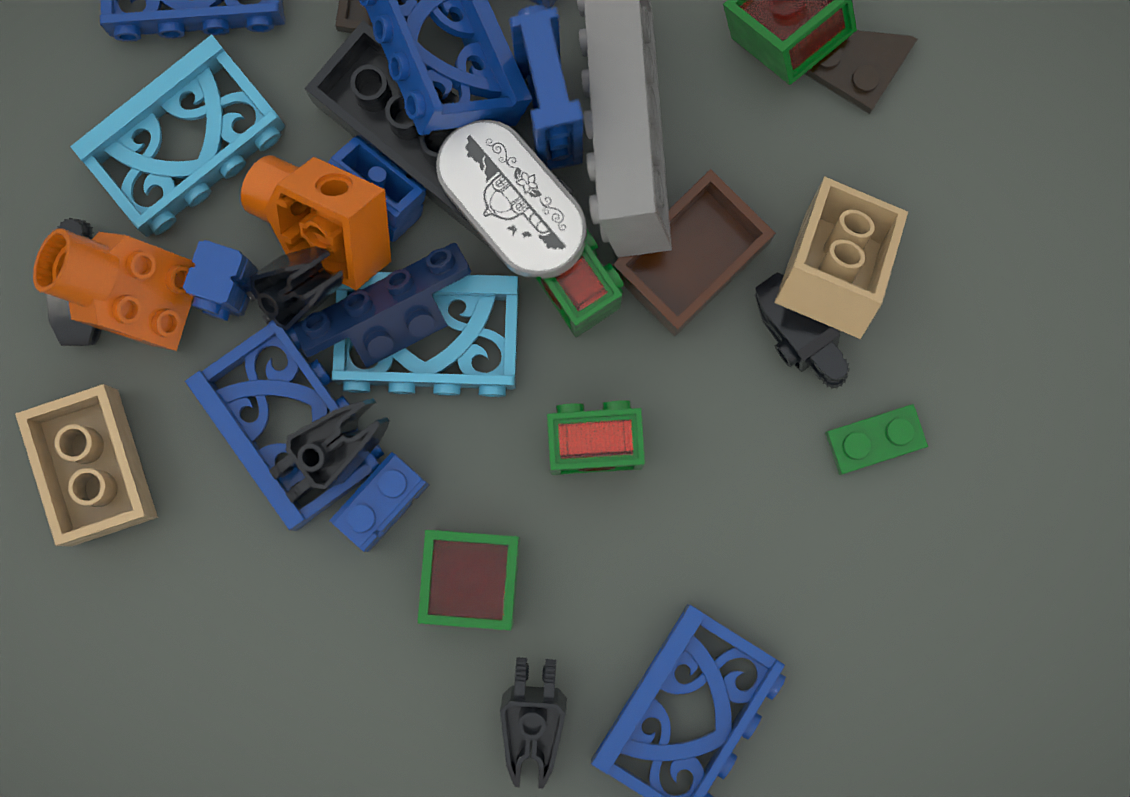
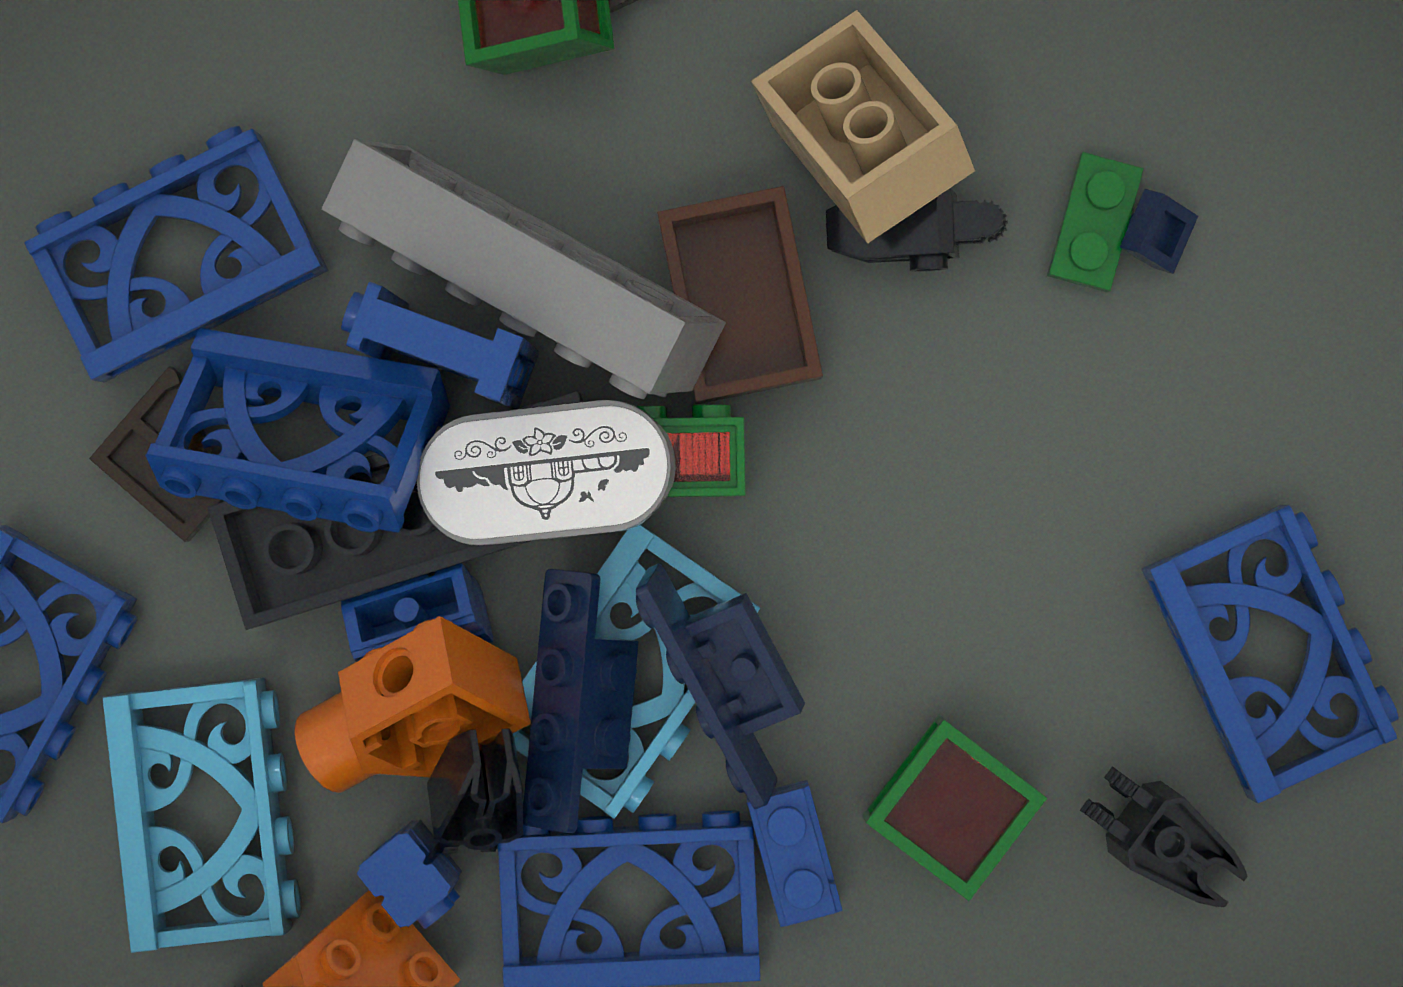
camera: 65 degrees left, 5 degrees up
(329, 449) = (701, 882): black hinge -> none
(462, 387) = (729, 672): none -> dark blue bracket
(595, 439) = (888, 555): piece -> none
(897, 479) = (1158, 231): none -> dark blue plate

